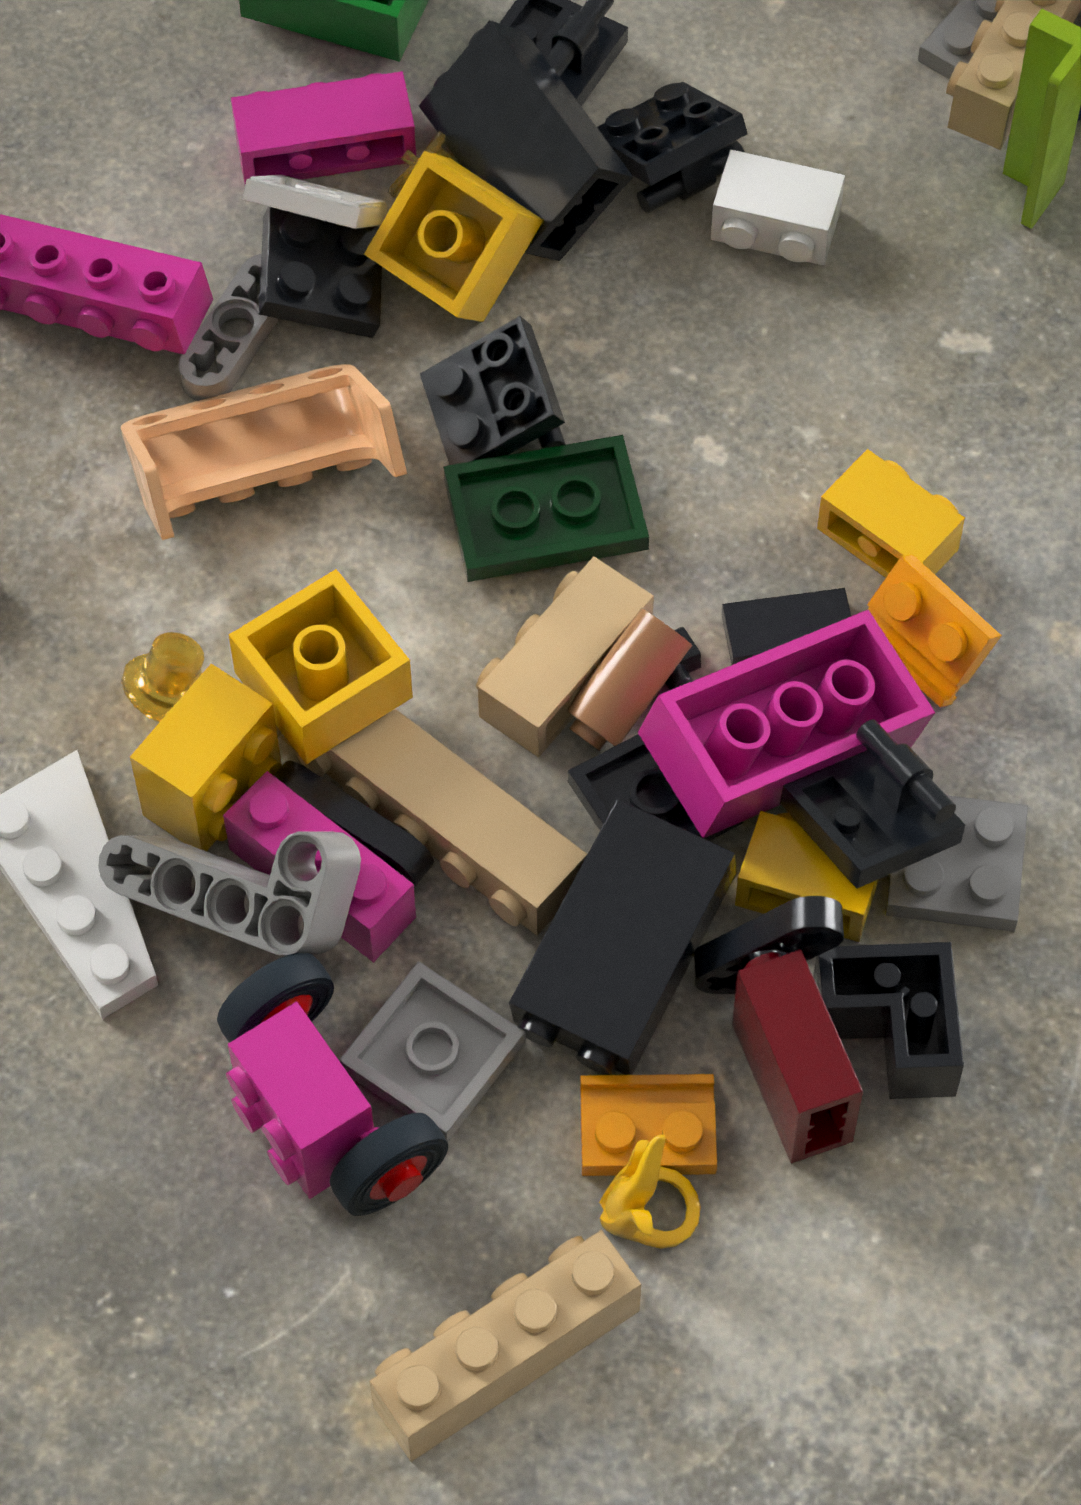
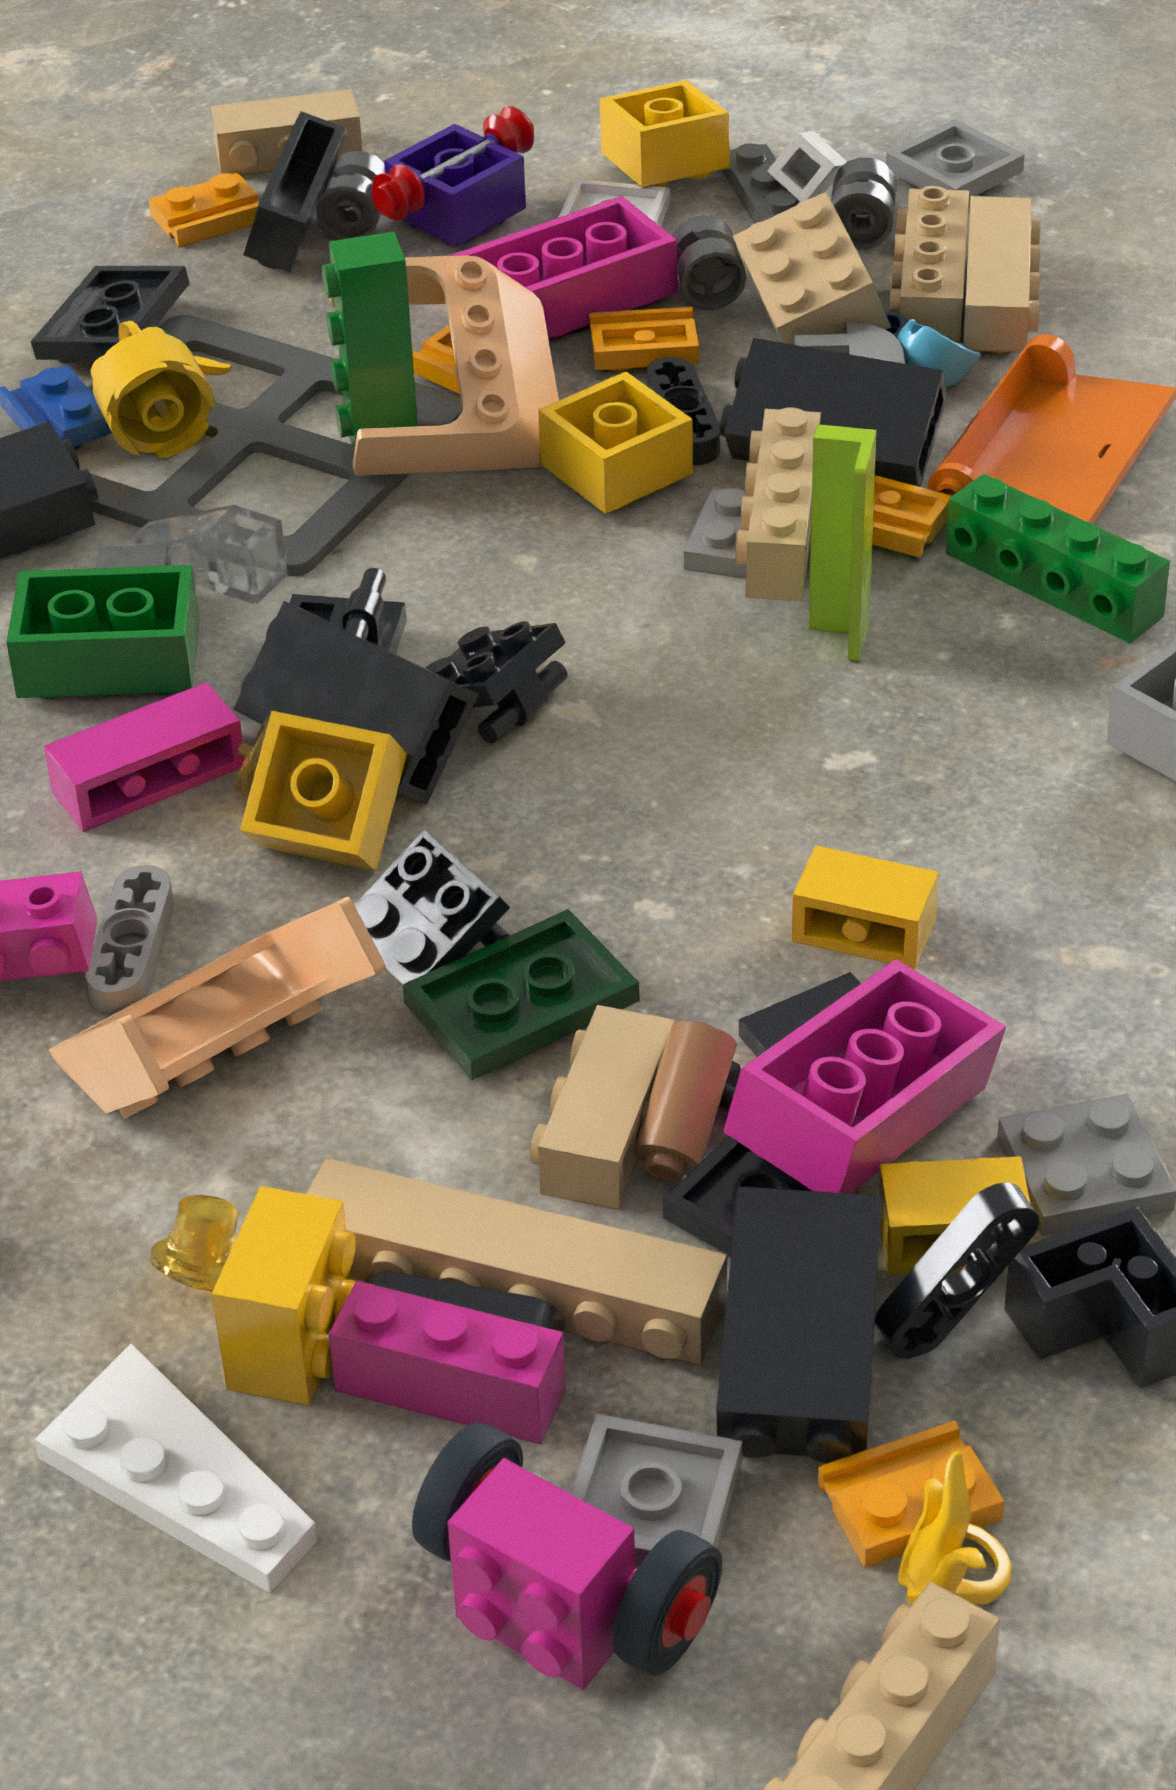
camera: 20 degrees left, 20 degrees down
(222, 886) = (361, 1395): light grey beam -> none
(315, 201) = (168, 804): white tile -> none
(319, 274) = (197, 865): black plate -> none
(322, 665) = (383, 1152): yellow brick -> none
(777, 207) = (620, 698): white brick -> none
(796, 1055) = (1038, 1362): dark red brick -> none
(874, 809) = (1000, 1115): black plate -> none
(931, 629) = (962, 962): light orange plate -> none

